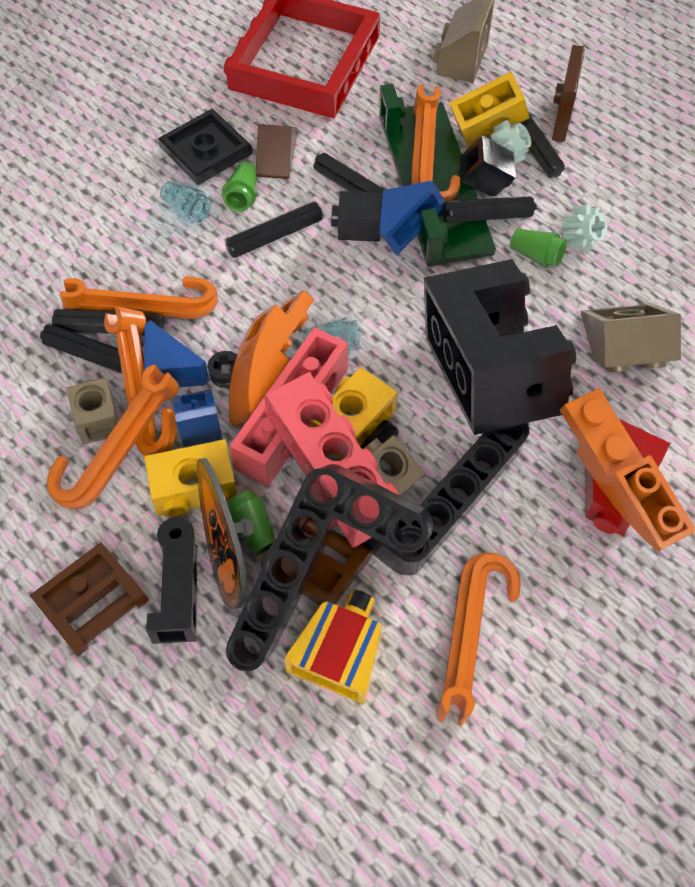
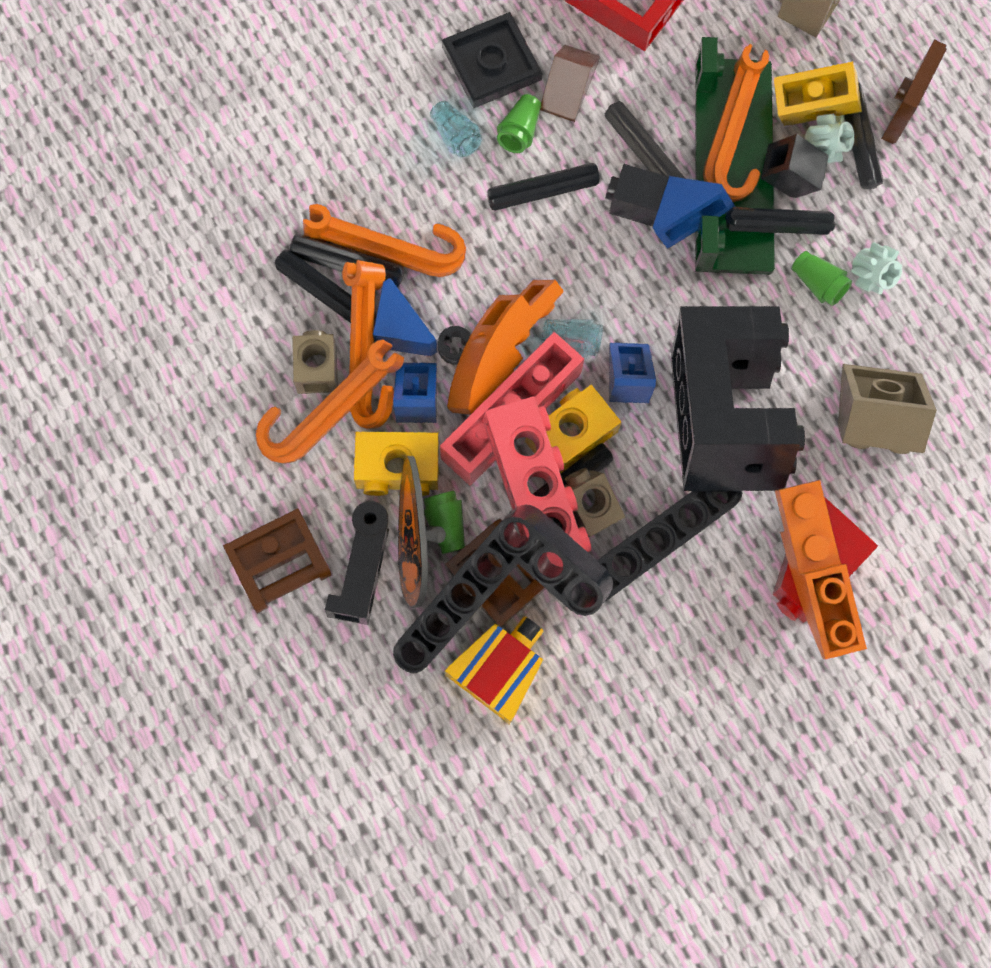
camera: 10 degrees right, 15 degrees up
(395, 358) = (631, 373): none -> blue slope
(466, 630) = (624, 678): orange piece -> none

